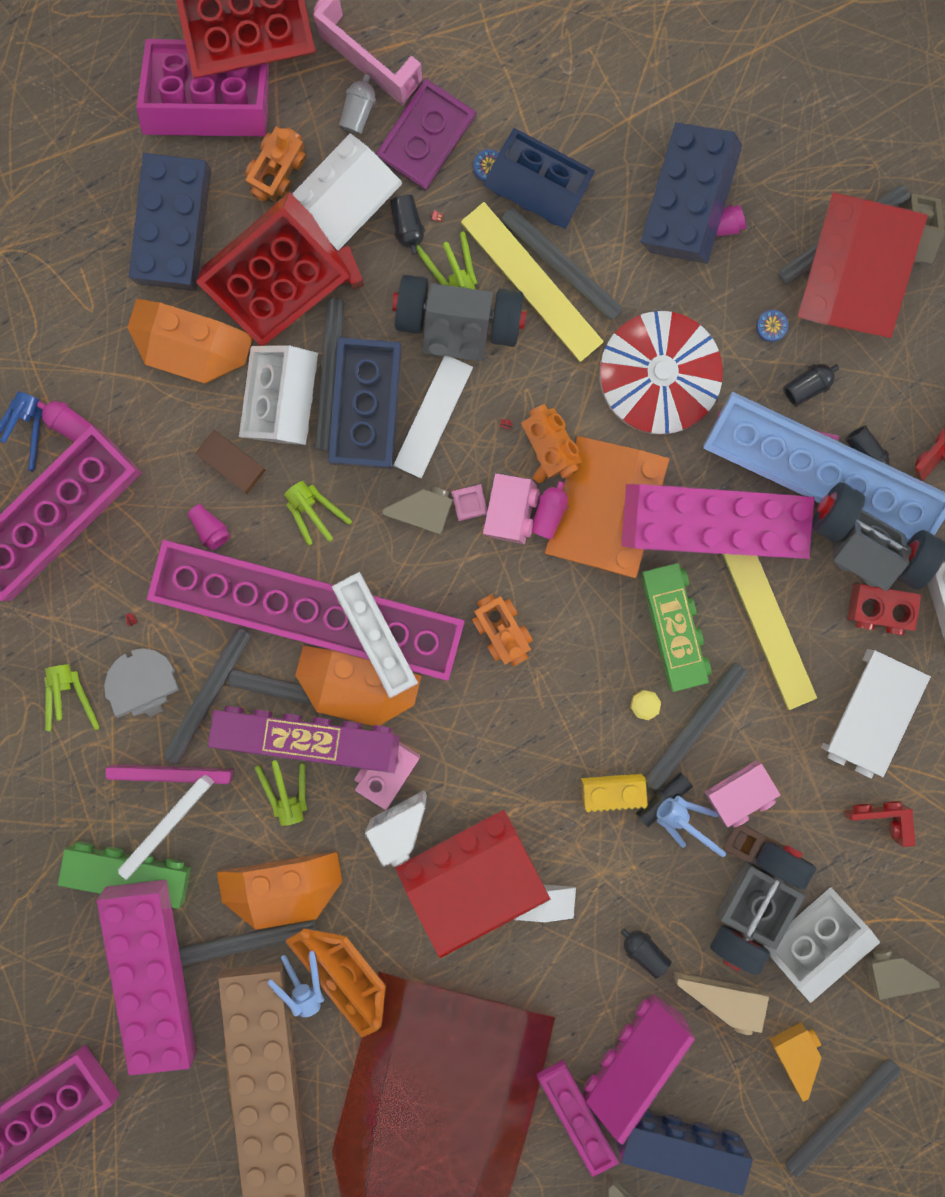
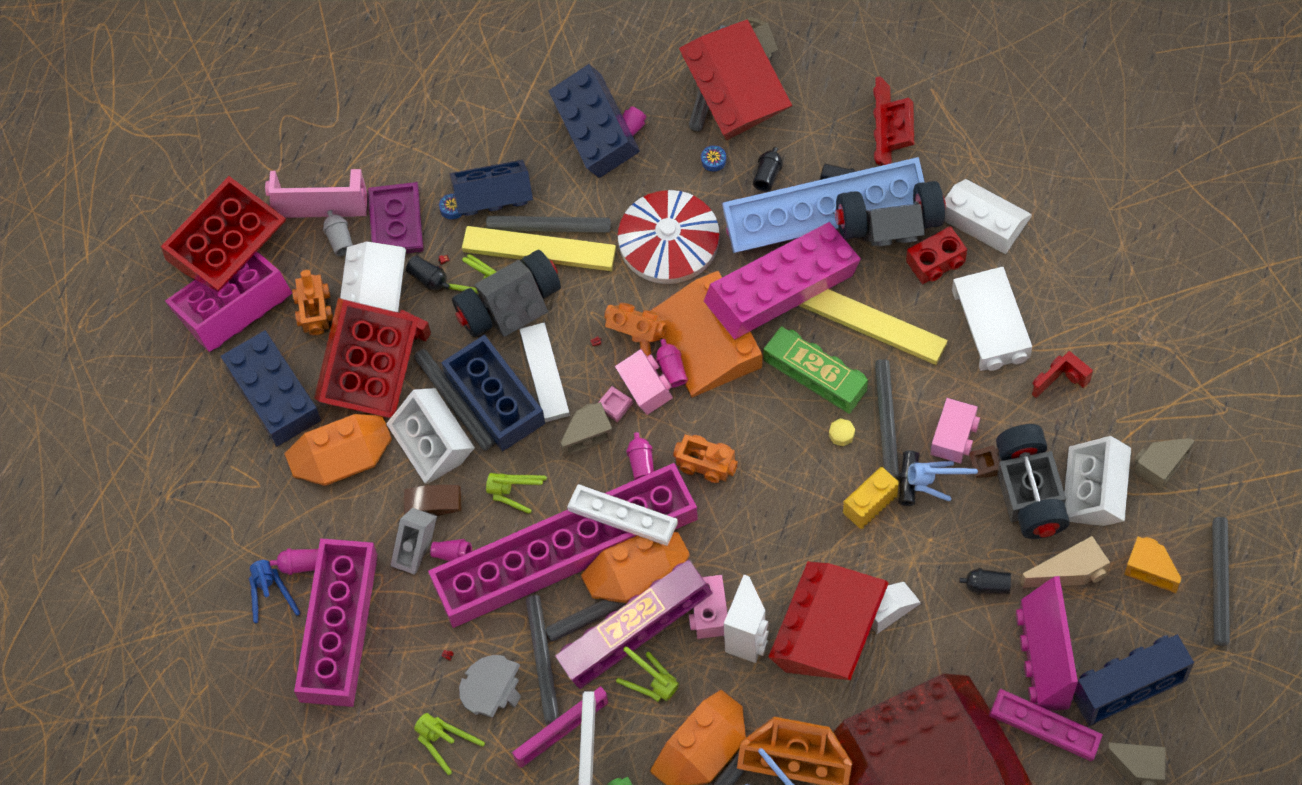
camera: 35 degrees left, 25 degrees down
(182, 487) = (413, 540): none -> light grey slope
(446, 579) = (640, 456): none -> dark pink piece

